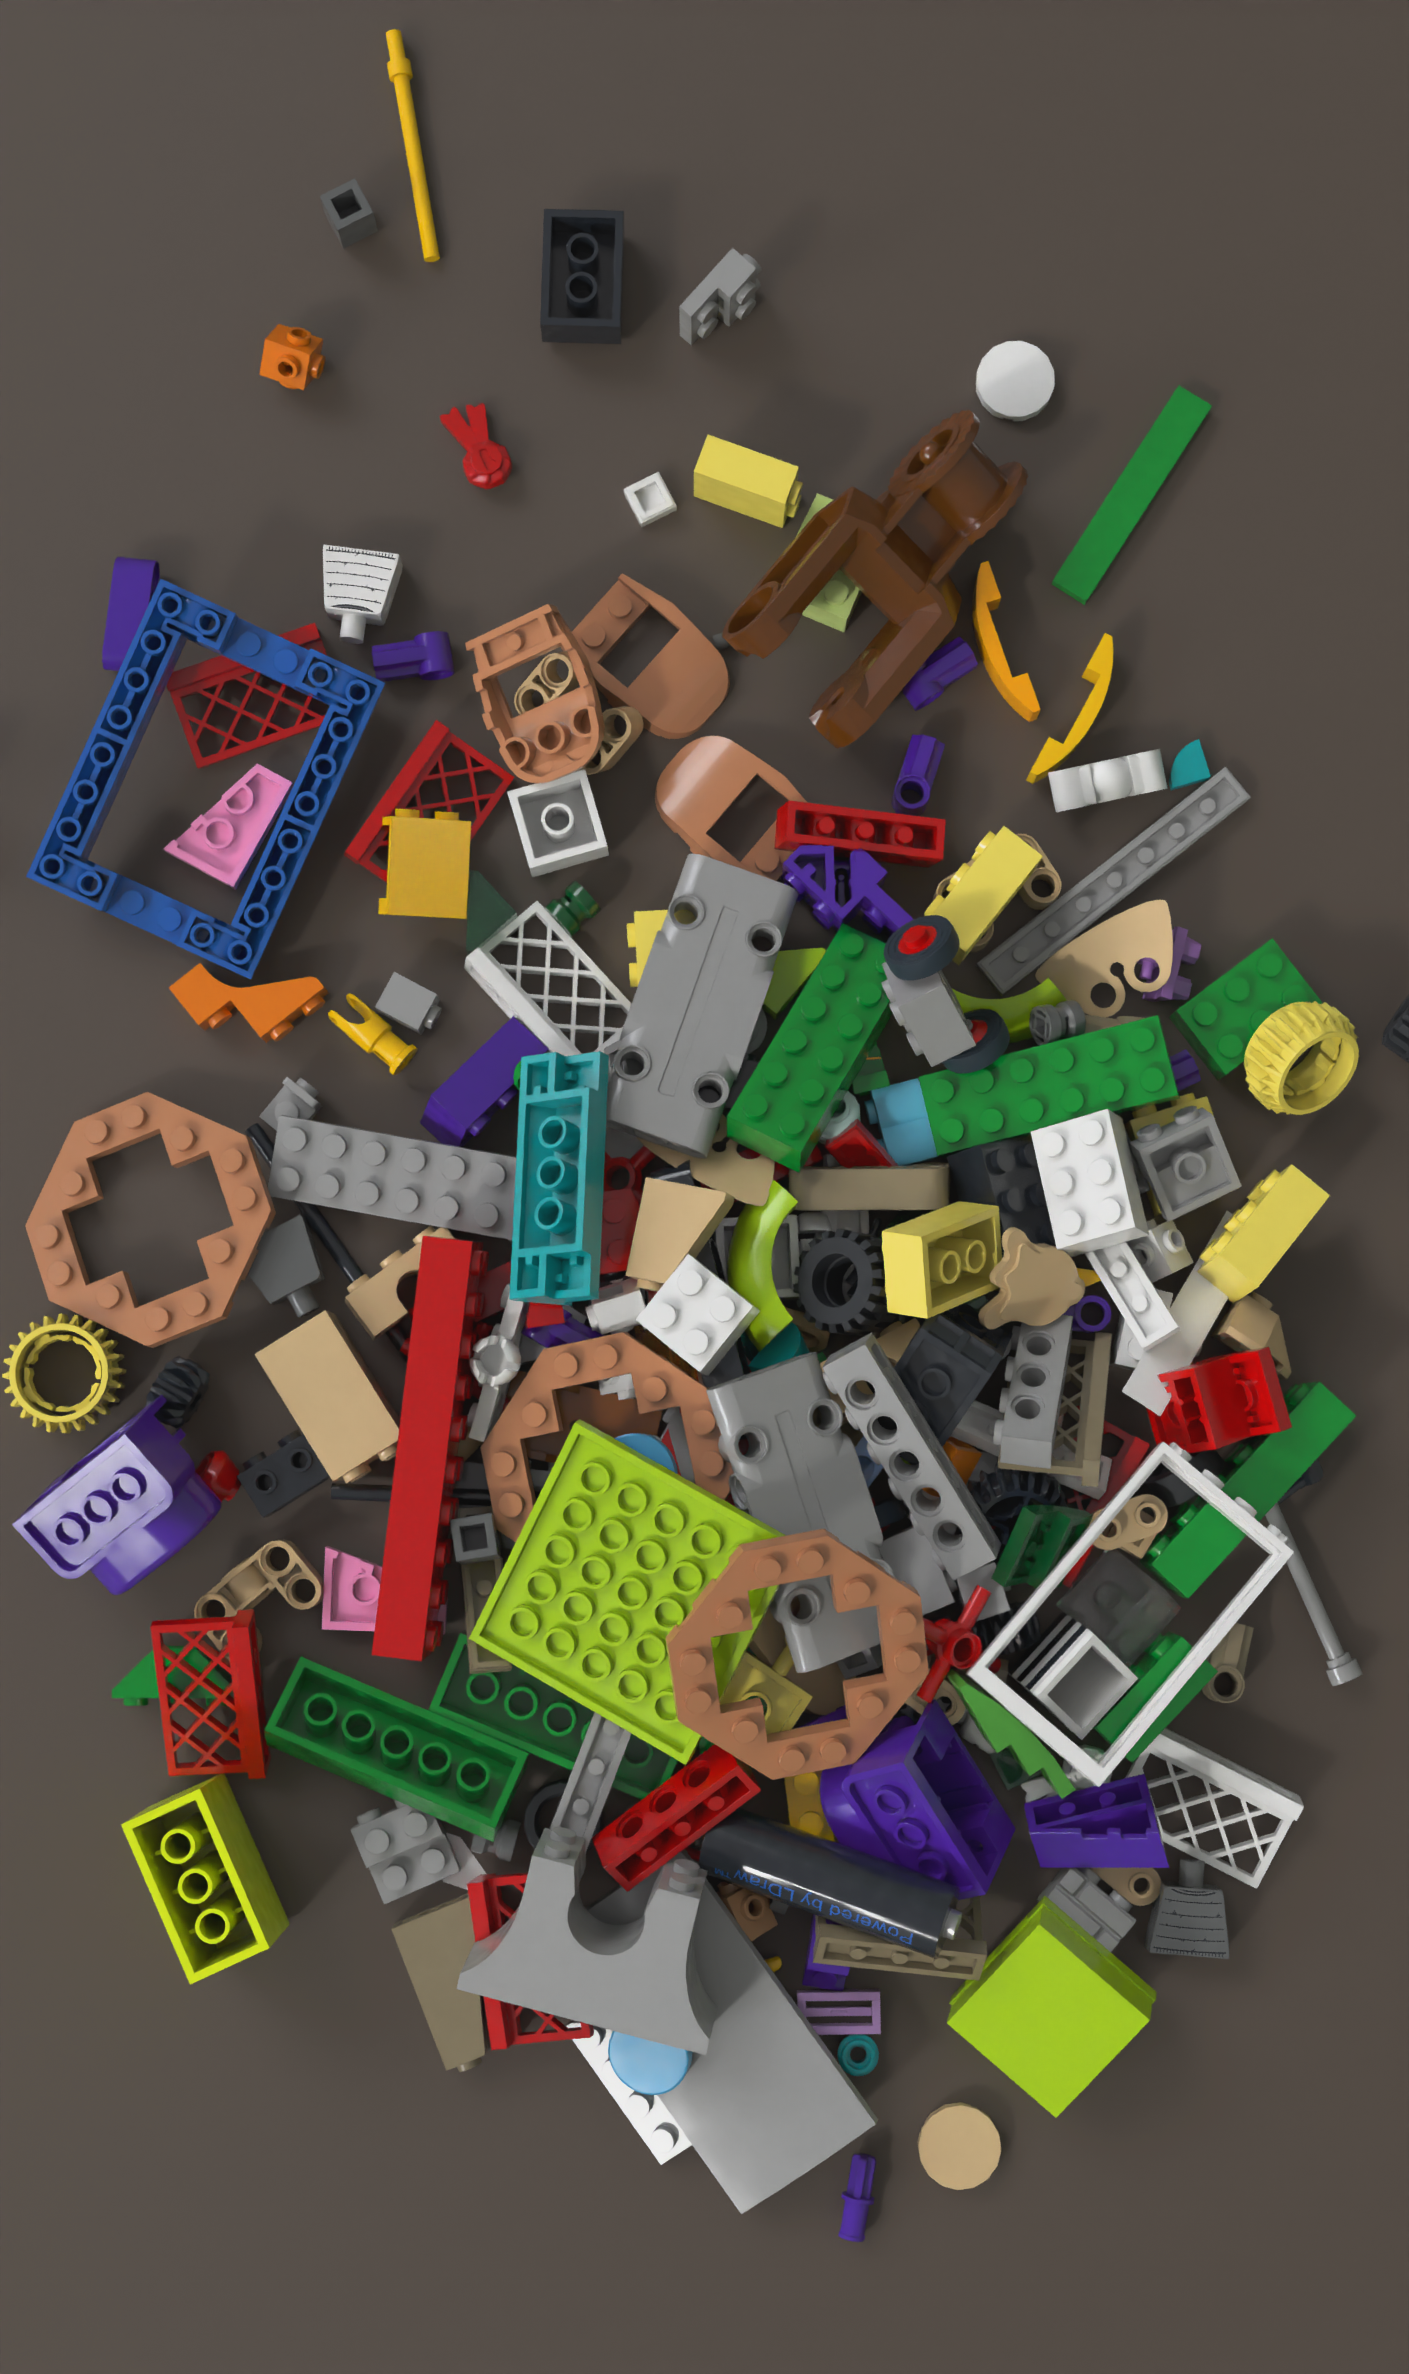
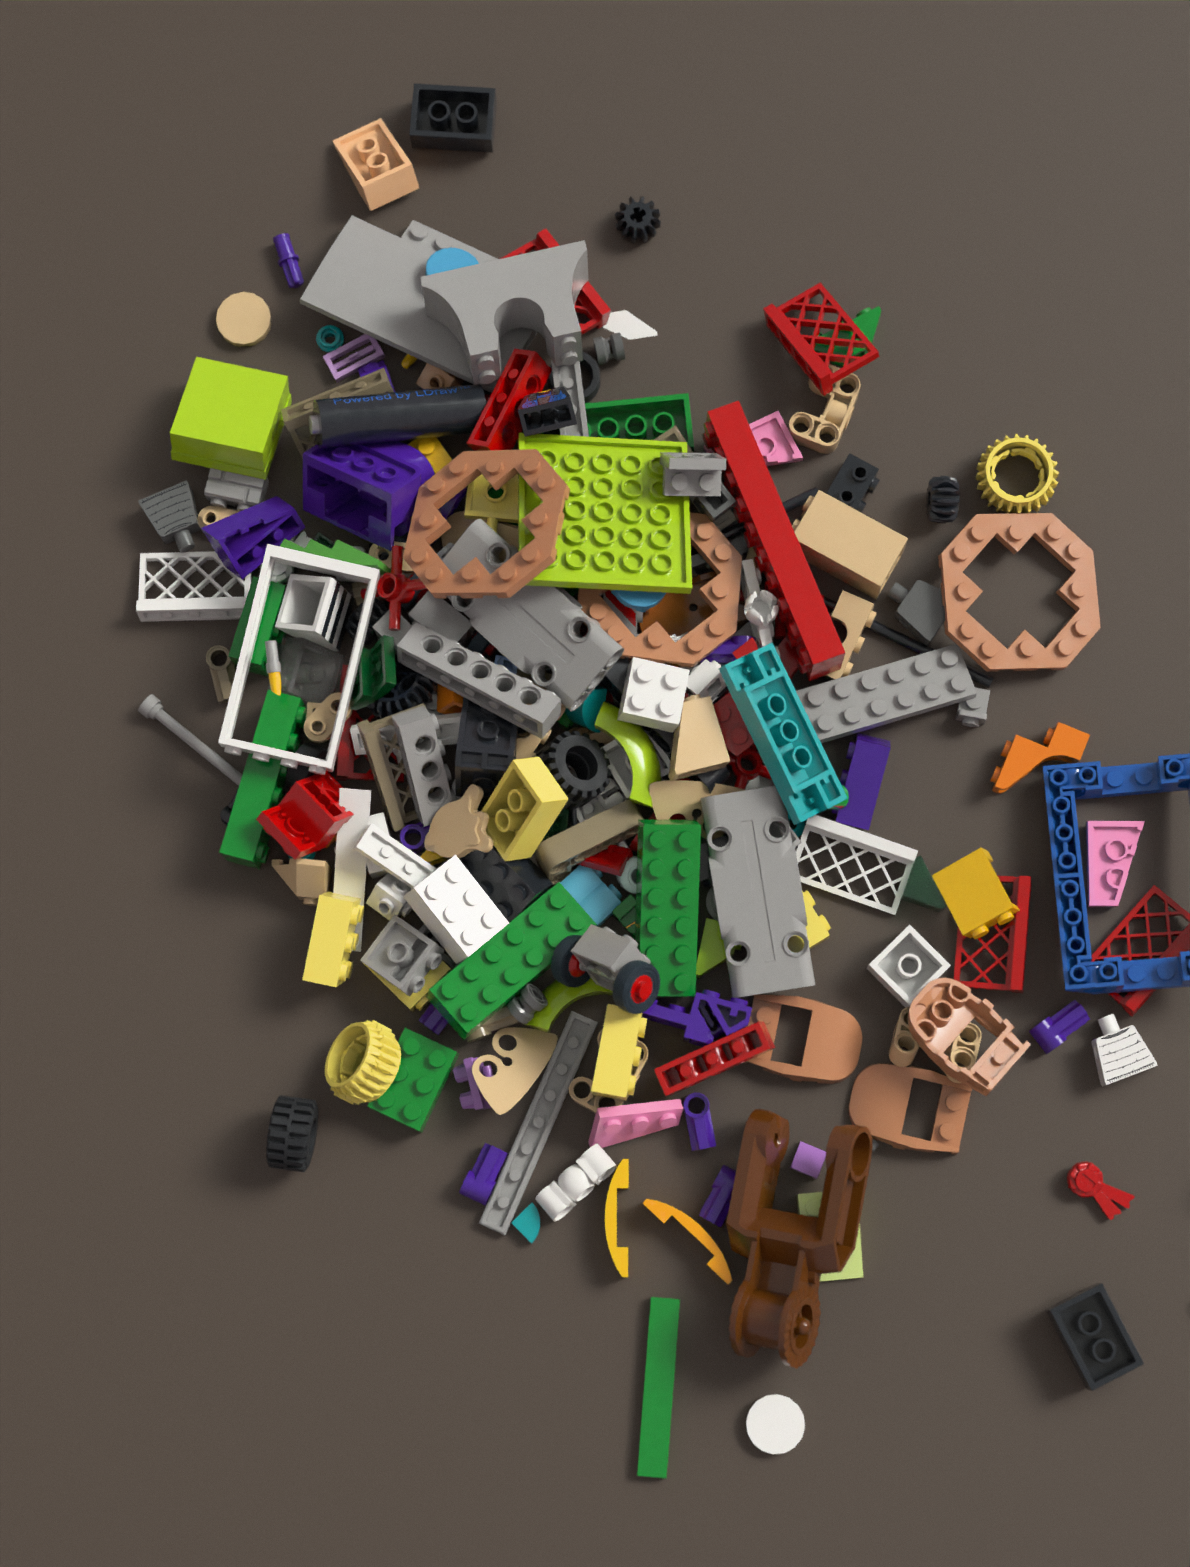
camera: 160 degrees right, 5 degrees down
(121, 1506) = (936, 412): brick -> none
(206, 1878) = (764, 231): neon yellow brick -> none
(219, 1474) = (892, 462): red cone -> none
(348, 1987) = (638, 209): none -> black gear
(375, 1036) = (945, 776): yellow piece -> none
(396, 1748) = (695, 363): green brick -> none
(404, 1849) = (659, 316): light grey plate -> none
(409, 1004) = (937, 806): light grey brick -> none
(434, 1953) = (609, 266): dark tan slope -> none
(487, 1585) = (692, 473): none -> light grey bracket
(531, 2282) = (453, 117): none -> black brick
(573, 908) = (869, 920): dark green wheel -> none
(634, 1774) = (546, 411): none -> black torso
(650, 499) = (968, 1214): white tile -> none
(669, 2273) = (376, 164): none -> light nougat slope
(724, 293) = (994, 1379): light grey plate -> none
(747, 481) = (911, 1253): light yellow brick -> none
(808, 661) = (808, 1160): none -> medium lavender slope
(1026, 821) = (631, 1121): none -> bright pink wing
(1173, 1613) = (273, 666): none -> light grey piece
(1222, 845) = (481, 1179): none -> dark purple piece

